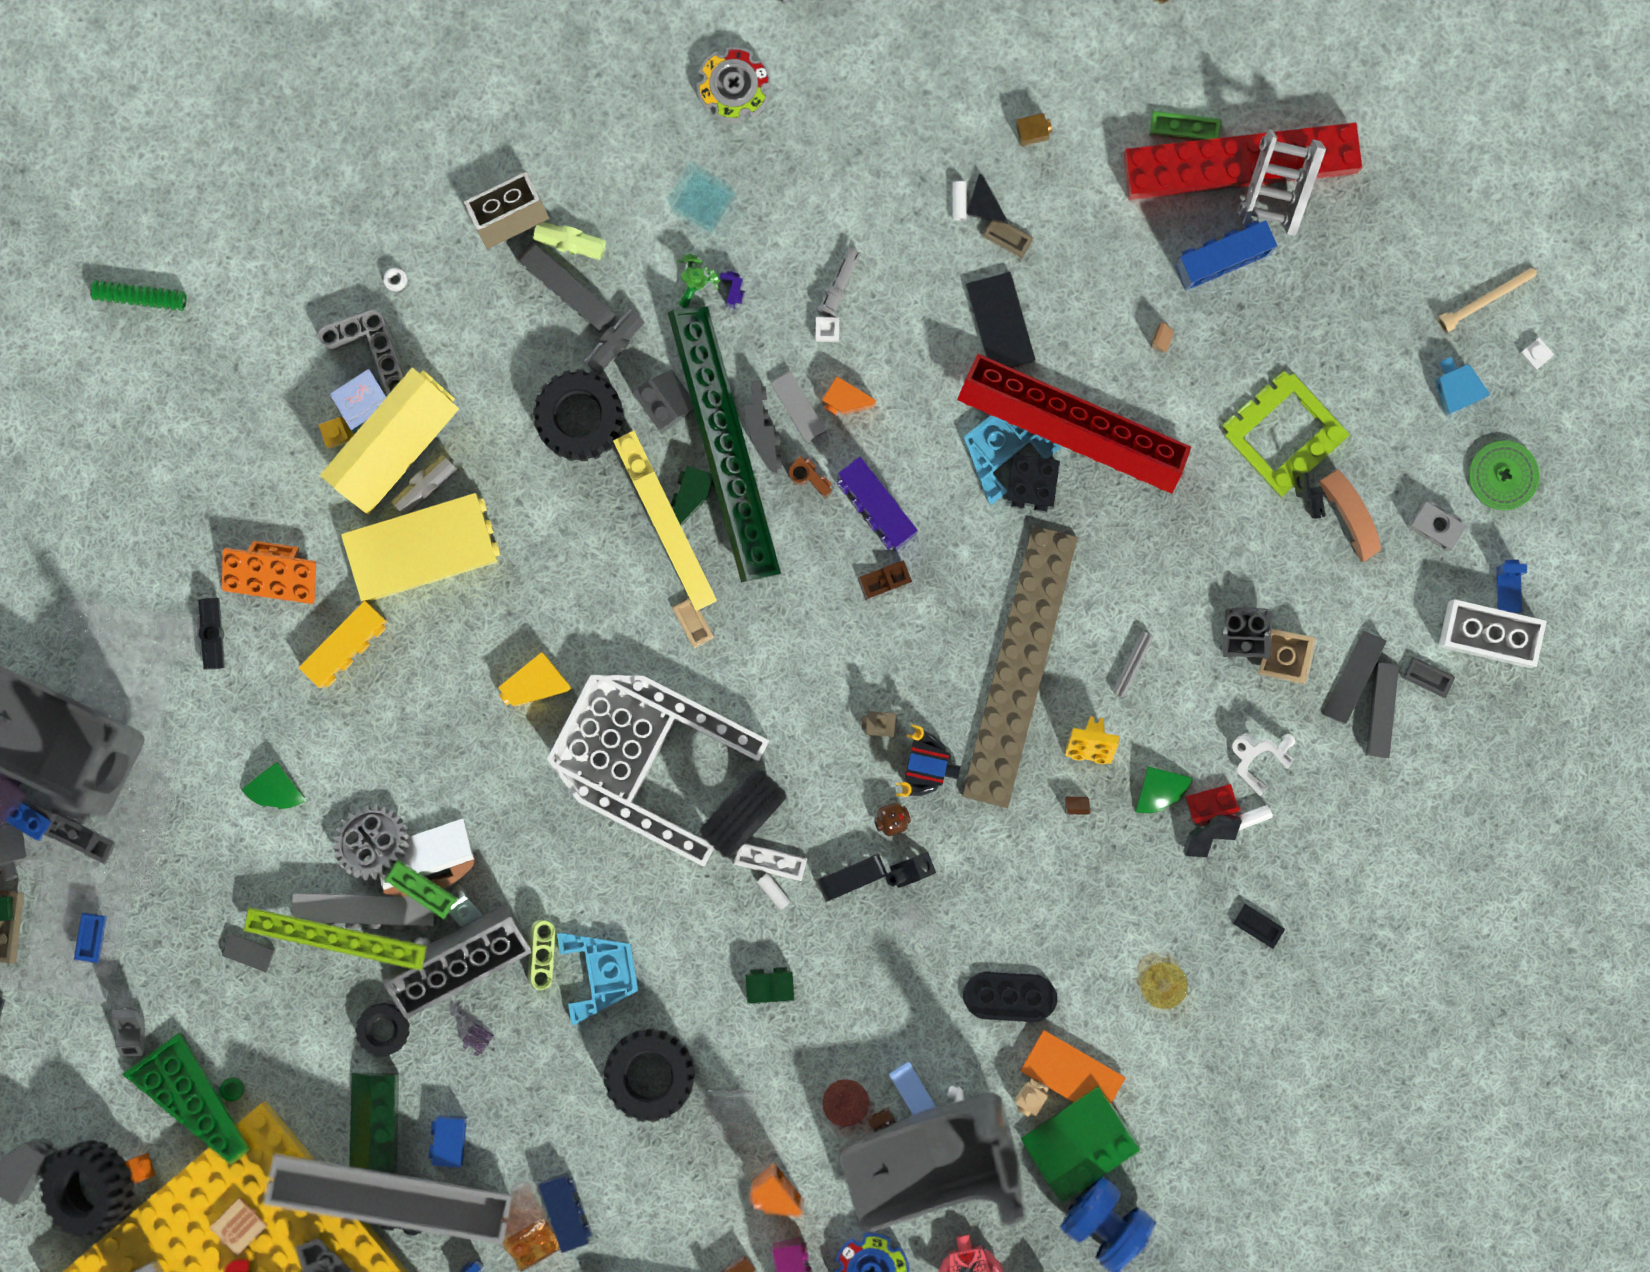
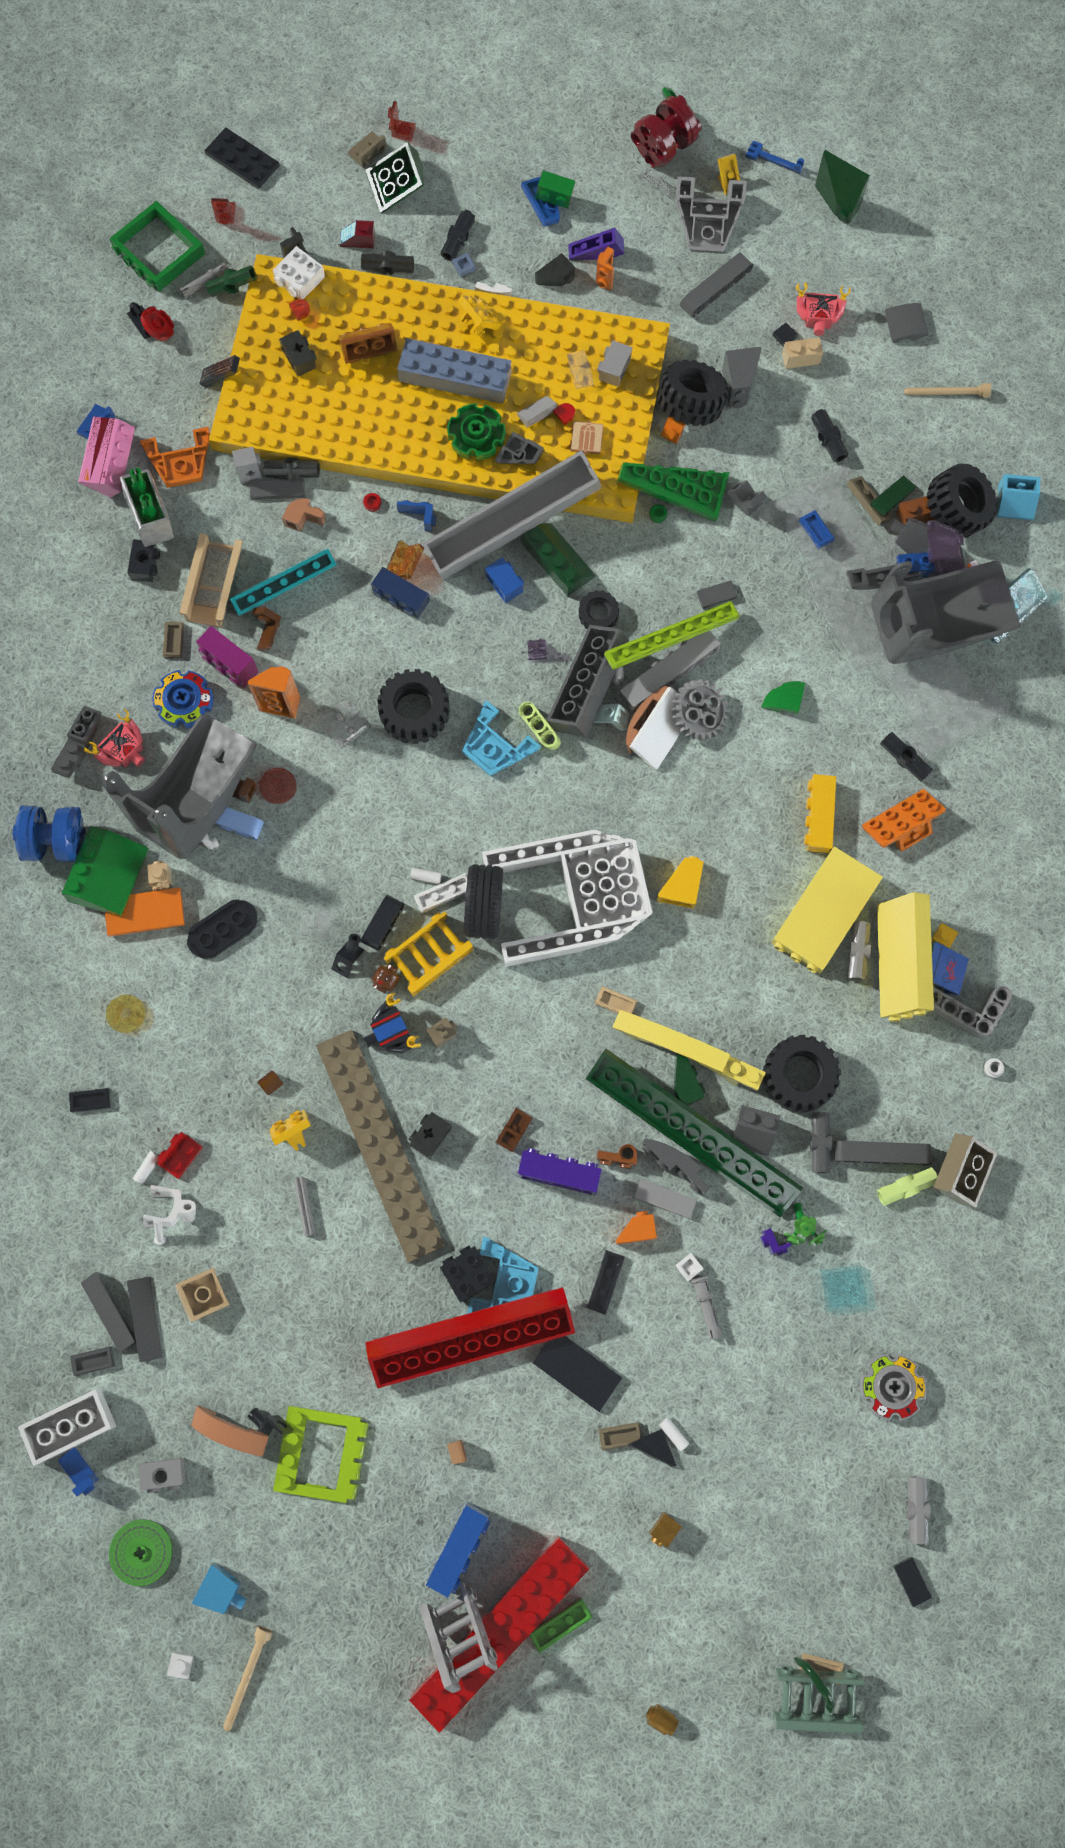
camera: 140 degrees right, 10 degrees down
(421, 889) = (645, 702): bright green tile -> none
(769, 987) = (381, 816): dark green brick -> none
(821, 792) = (431, 972): none -> yellow fence
(912, 377) = (605, 1282): none -> black tile
(978, 627) = (428, 1146): none -> pearl dark grey brick
(1161, 790) = (222, 1137): green brick -> none
(1220, 827) = (162, 1142): black tile -> none
(1252, 635) = (241, 1290): dark grey slope -> none

